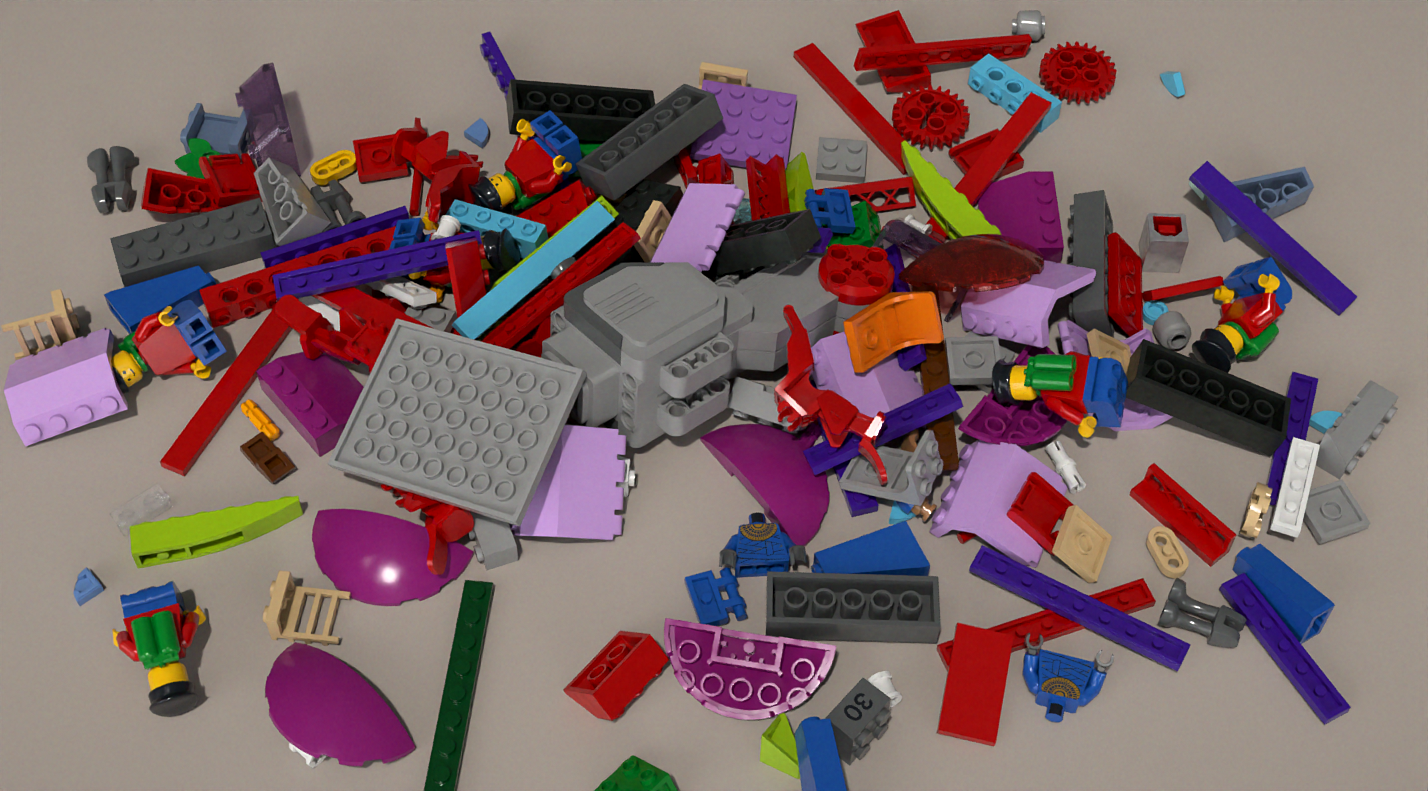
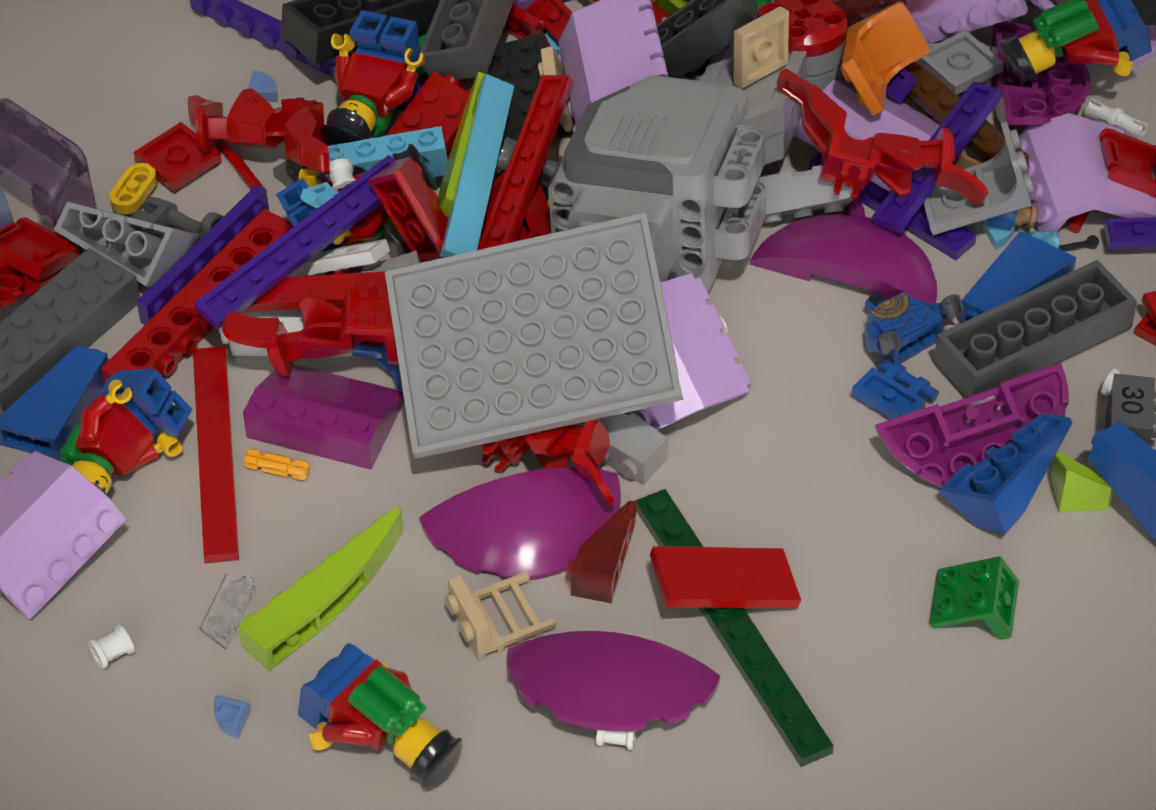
camera: 30 degrees left, 5 degrees down
(51, 494) = (111, 646): none -> white bush
(267, 458) = (317, 498): reddish brown slope -> none
(408, 610) = (602, 557): none -> clear red slope
(416, 235) = (318, 194): none -> medium azure tile
(469, 675) = (724, 577): none -> red tile
(617, 674) = (863, 504): red slope -> none
(726, 715) = (1003, 483): none -> blue wedge
(790, 278) = (761, 47): none -> tan plate
(927, 537) = (1049, 237): none -> medium azure tile
(964, 557) = (1091, 242): none -> black hinge

